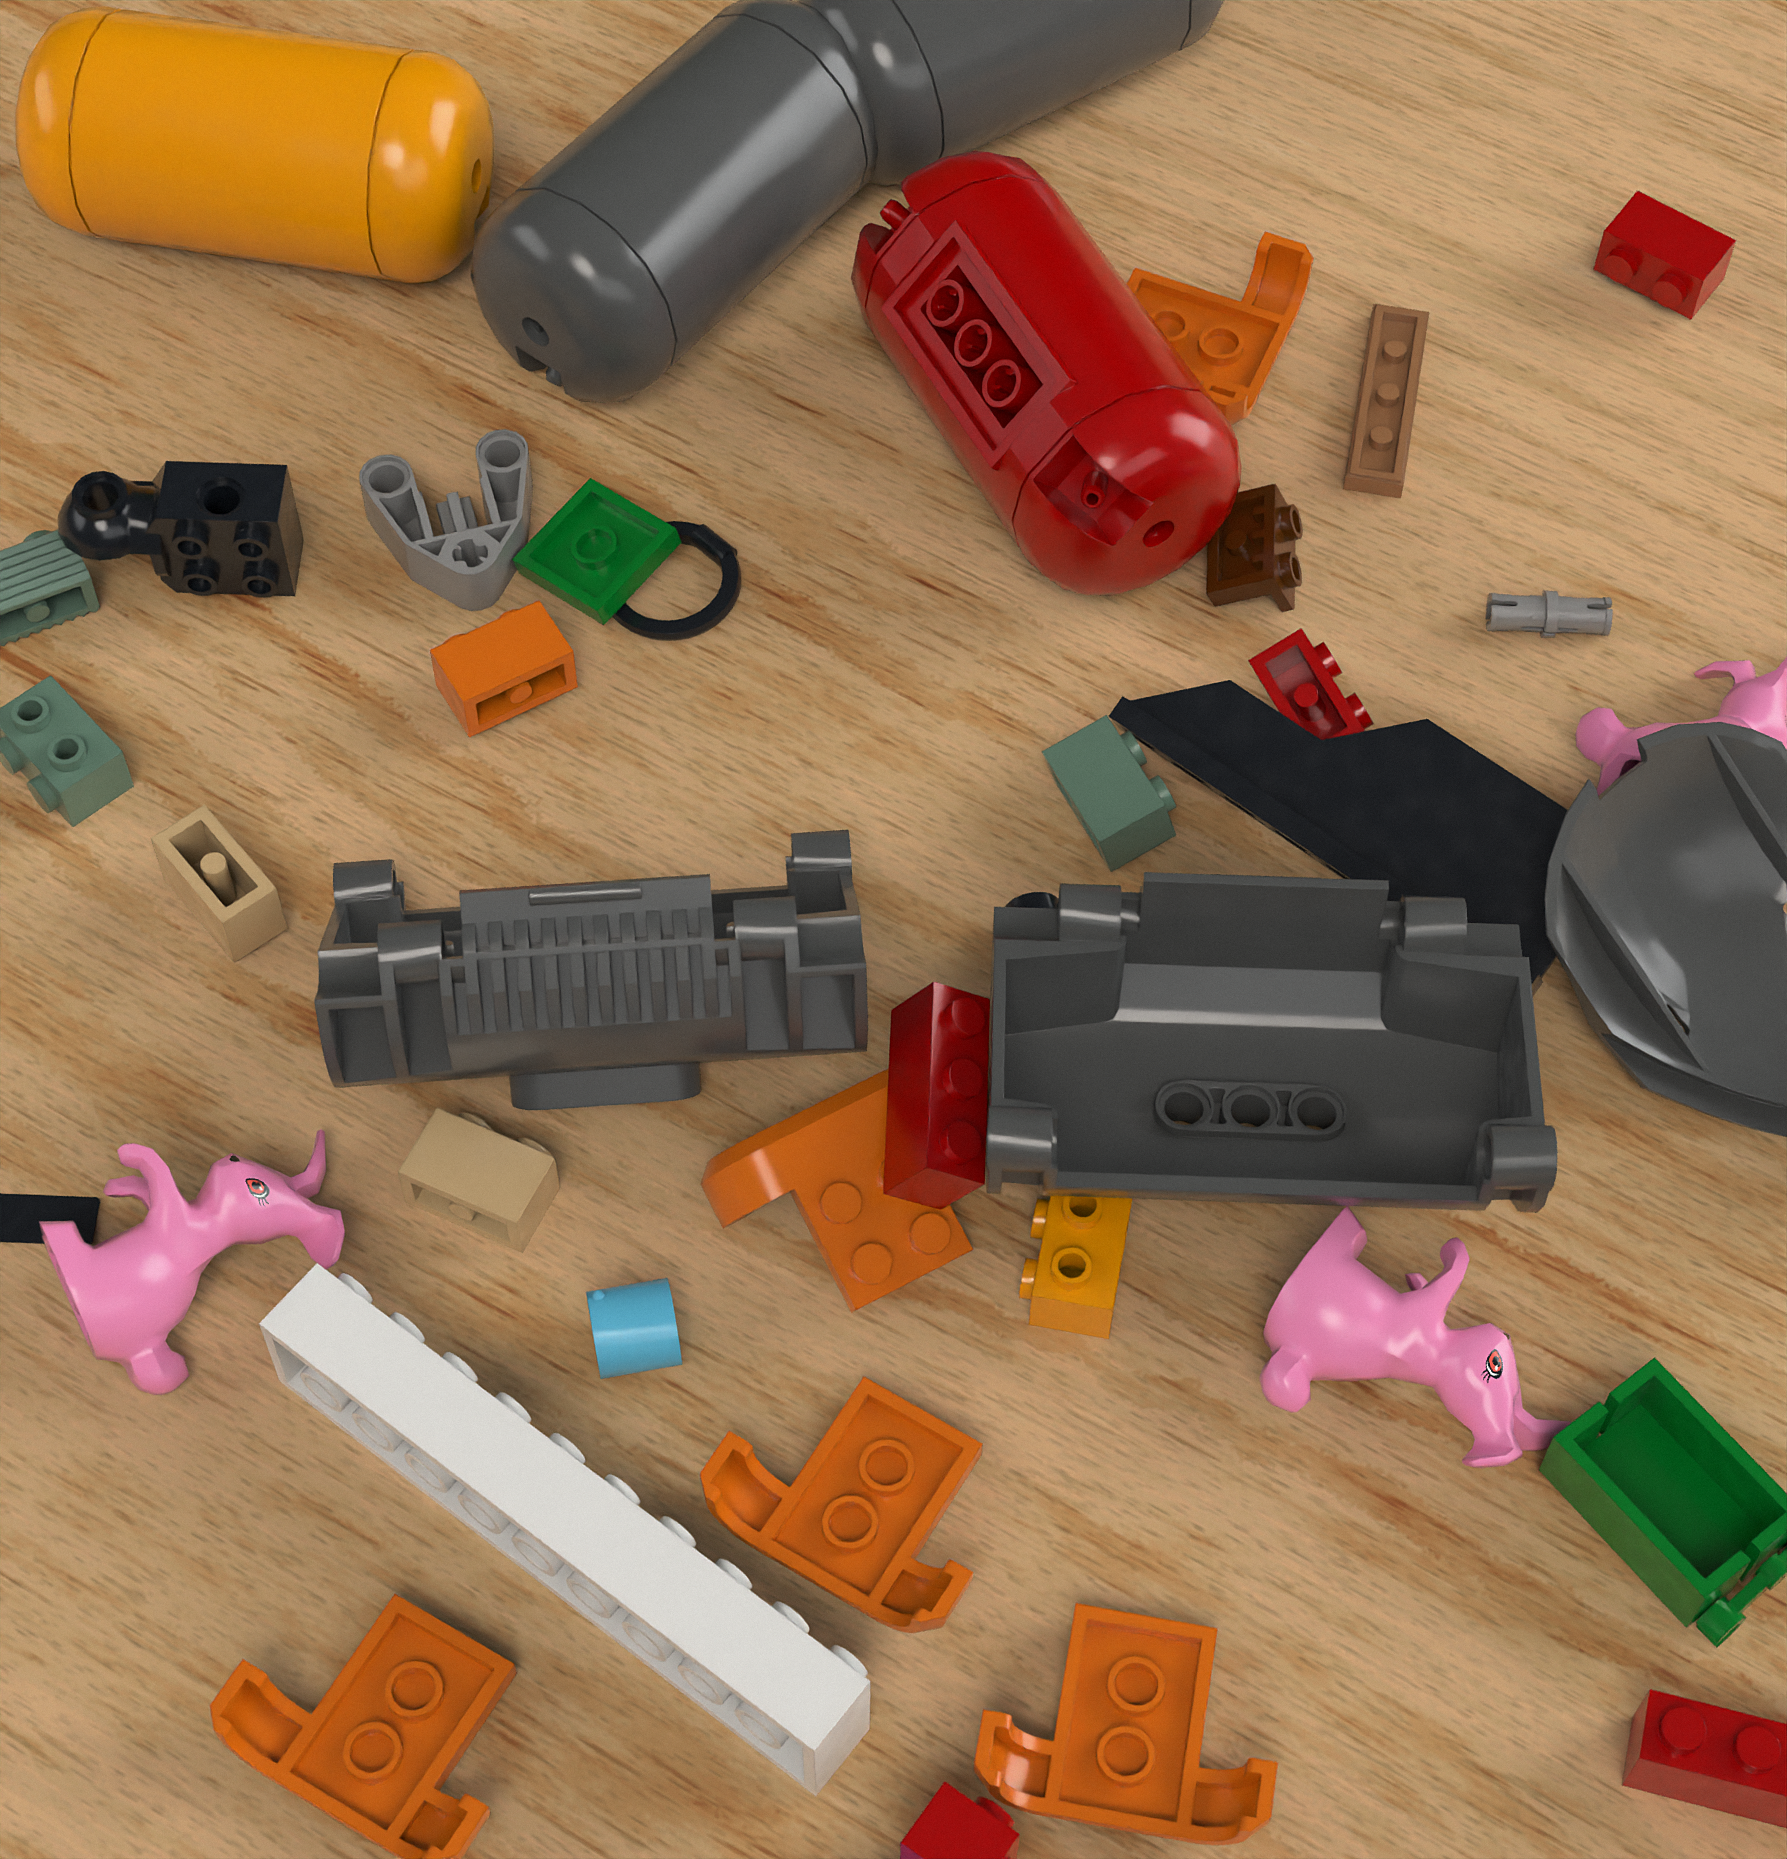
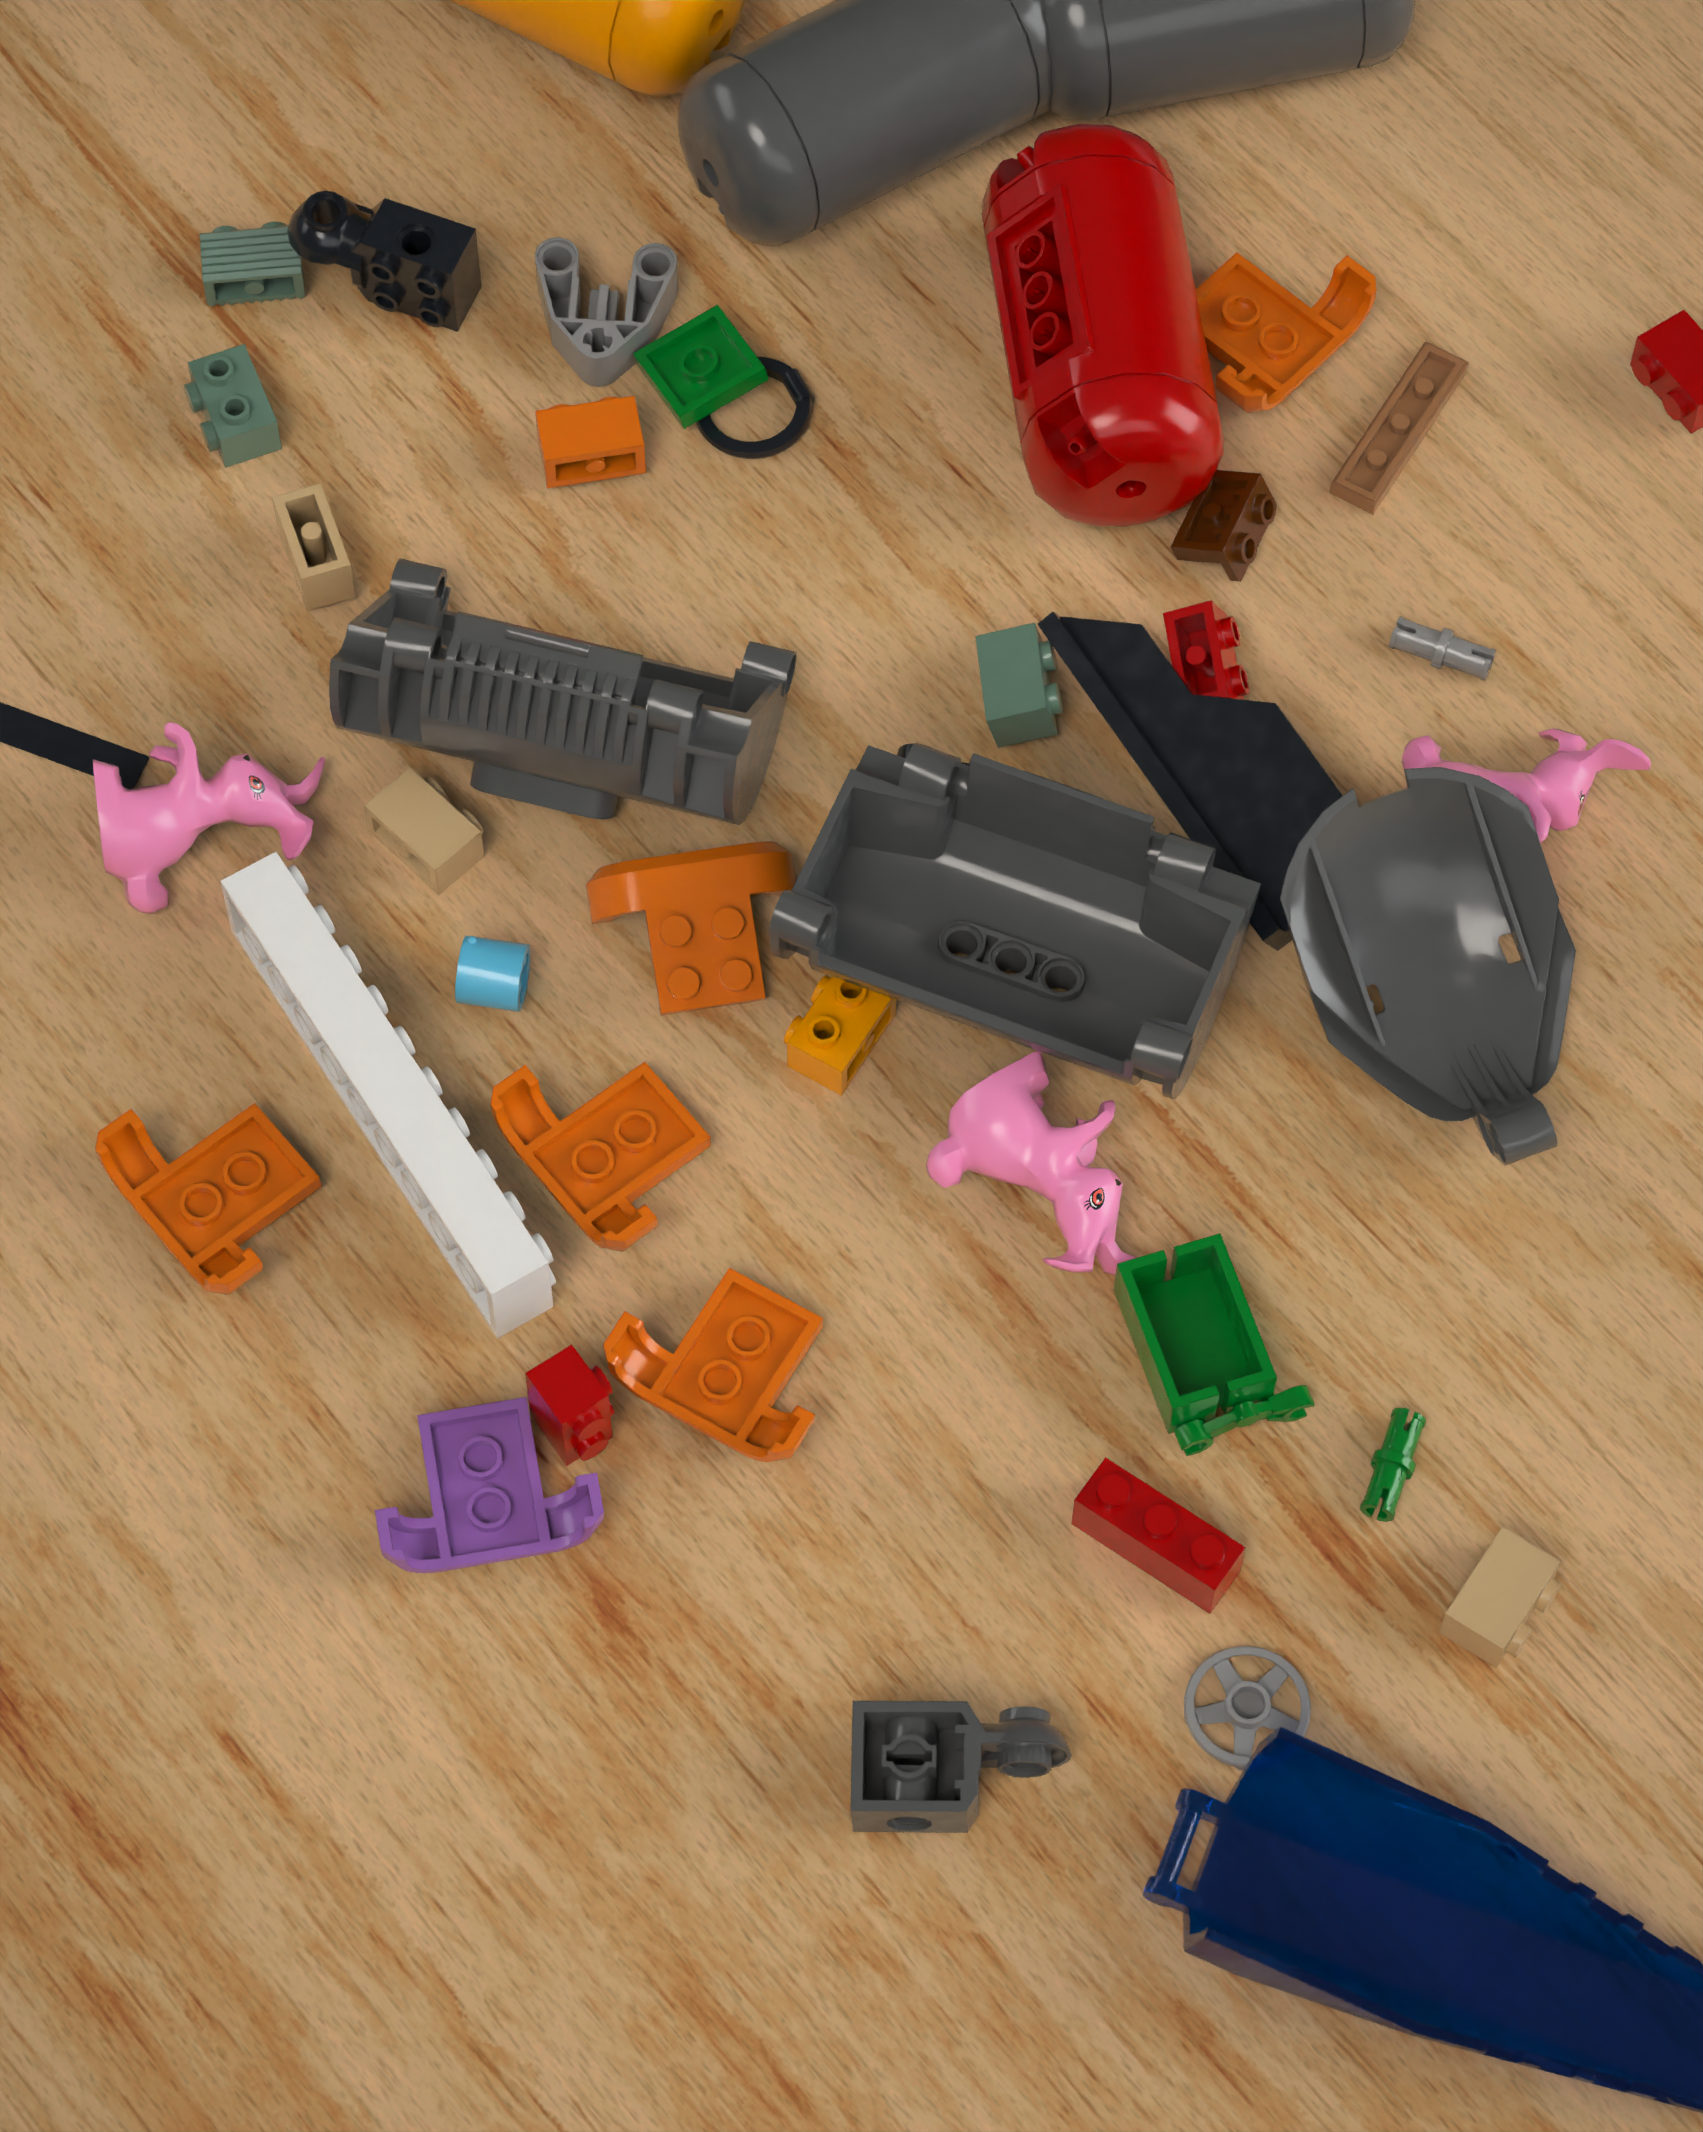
camera: 20 degrees right, 5 degrees up
(937, 1096) = (766, 869): red brick -> none

